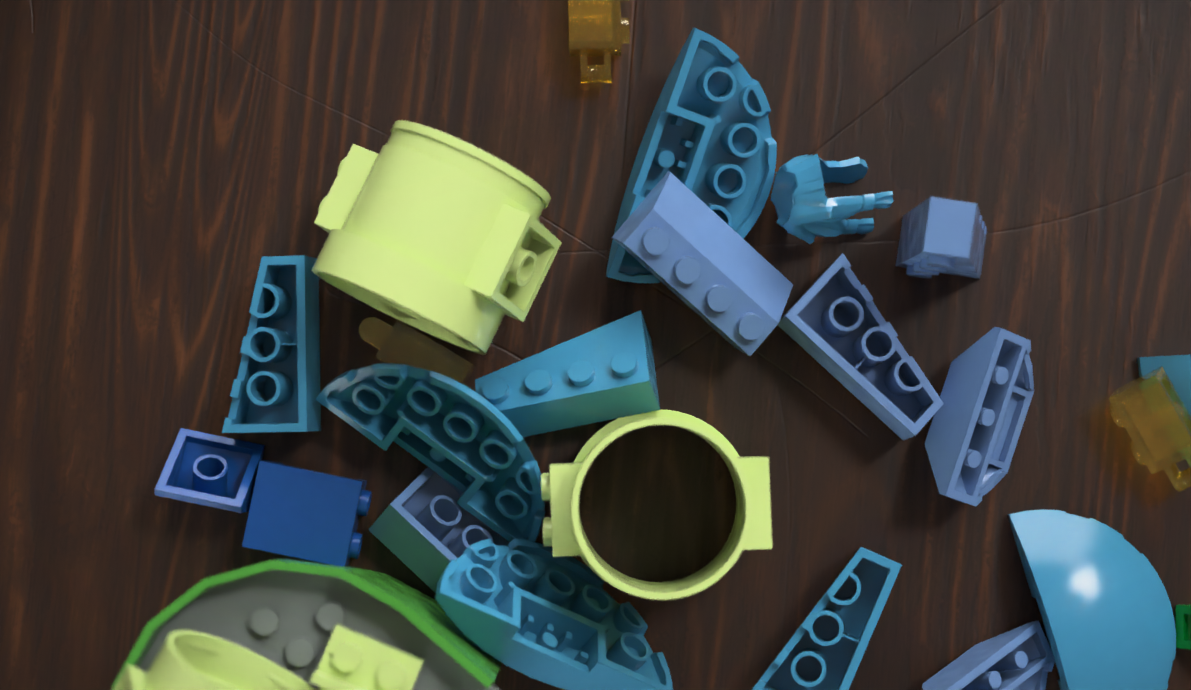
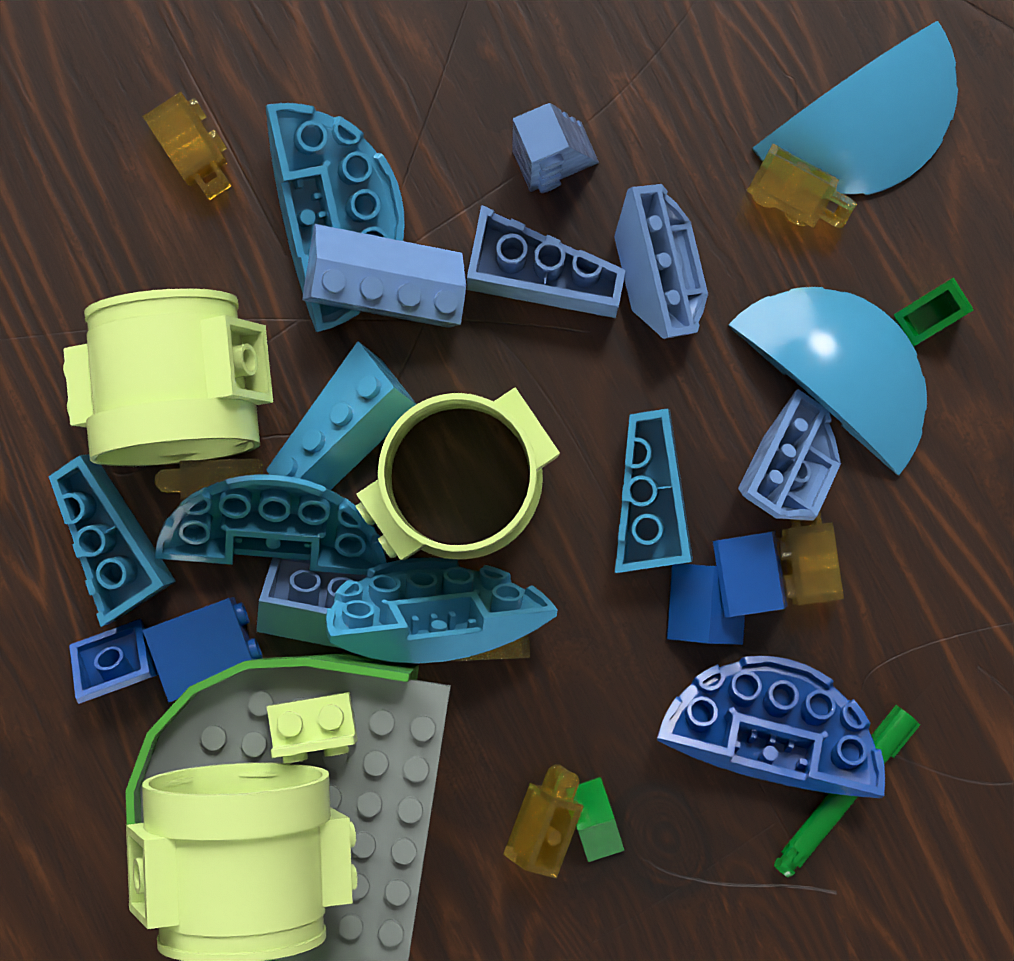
camera: 30 degrees left, 0 degrees up
(807, 211) = (440, 190): dark azure piece -> none

